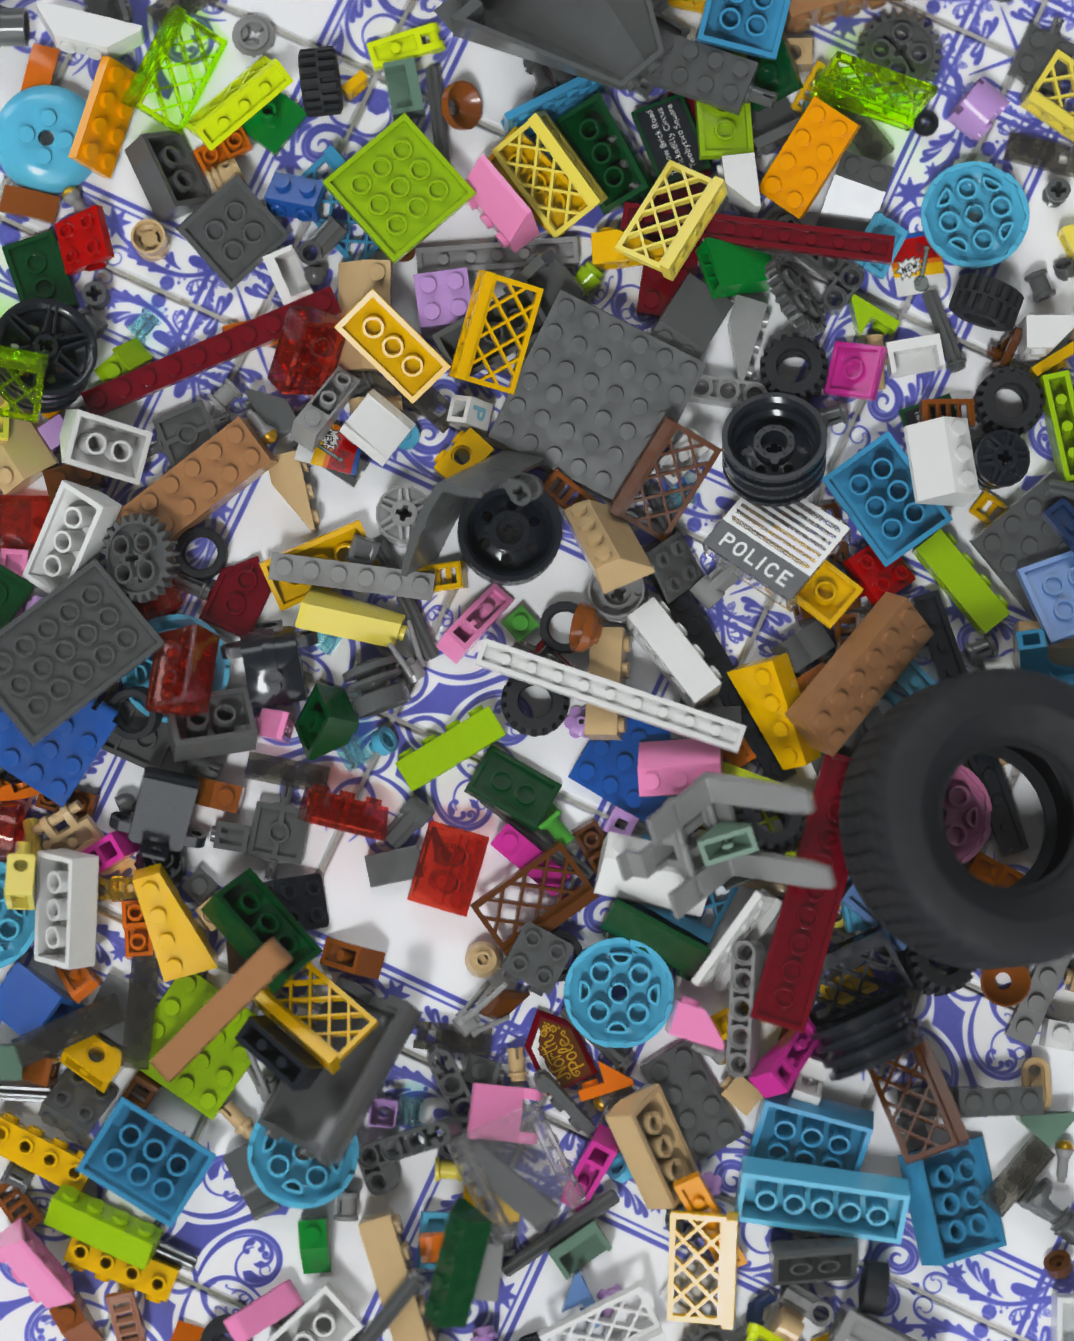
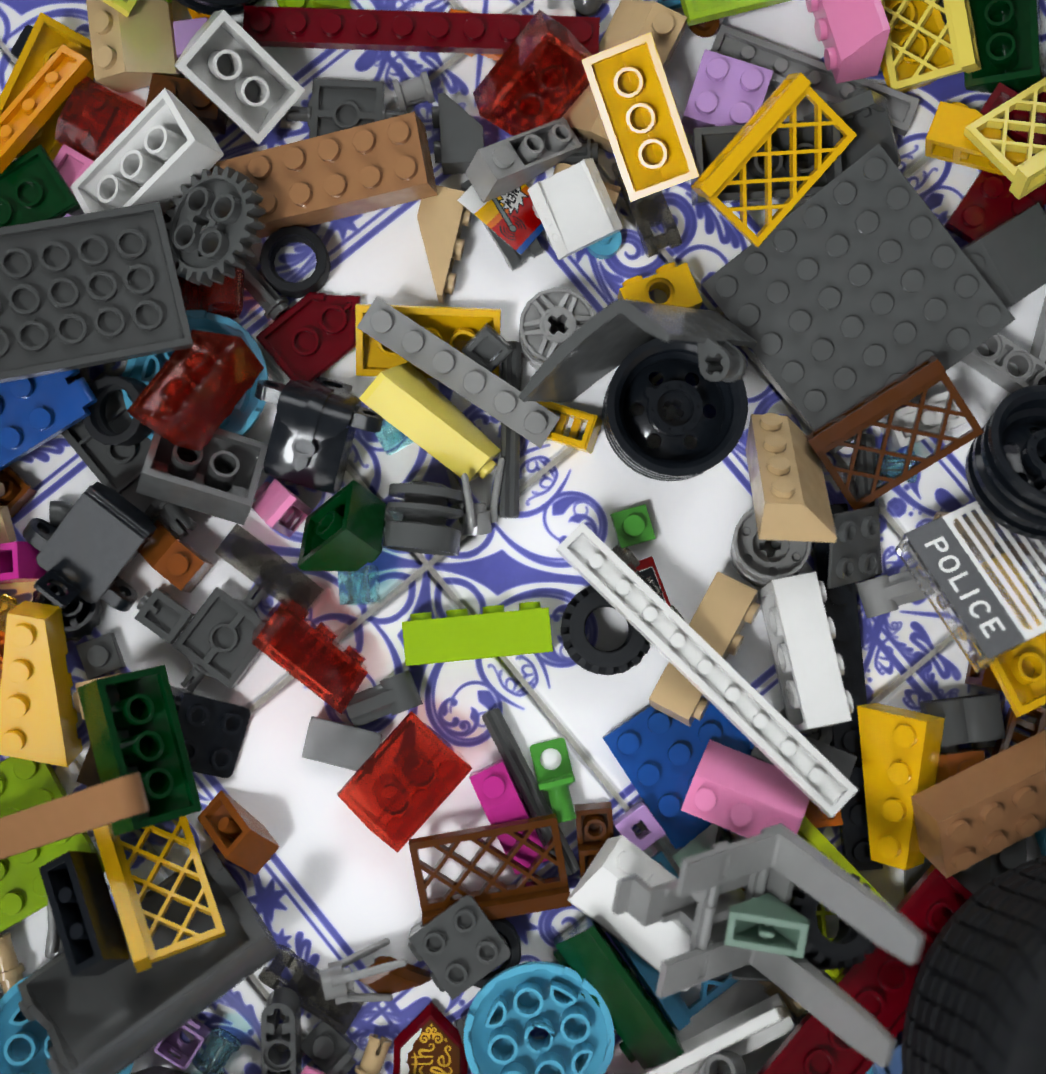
camera: 25 degrees right, 0 degrees up
(266, 433) = (439, 153): light grey piece -> none
(383, 741) = (402, 588): medium azure tile -> none
(469, 412) = (695, 244): white brick -> none
(474, 623) = (578, 499): bright pink slope -> none
(489, 966) = (395, 898): tan cone -> none
(513, 788) = (530, 721): dark green tile -> none
(549, 613) = (711, 548): black tyre -> none
(564, 480) = (768, 381): dark orange slope -> none
(572, 722) = (639, 674): lavender plant -> none
(585, 628) = (711, 569): dark orange piece -> none
(588, 277) = (913, 153): lime cone -> none

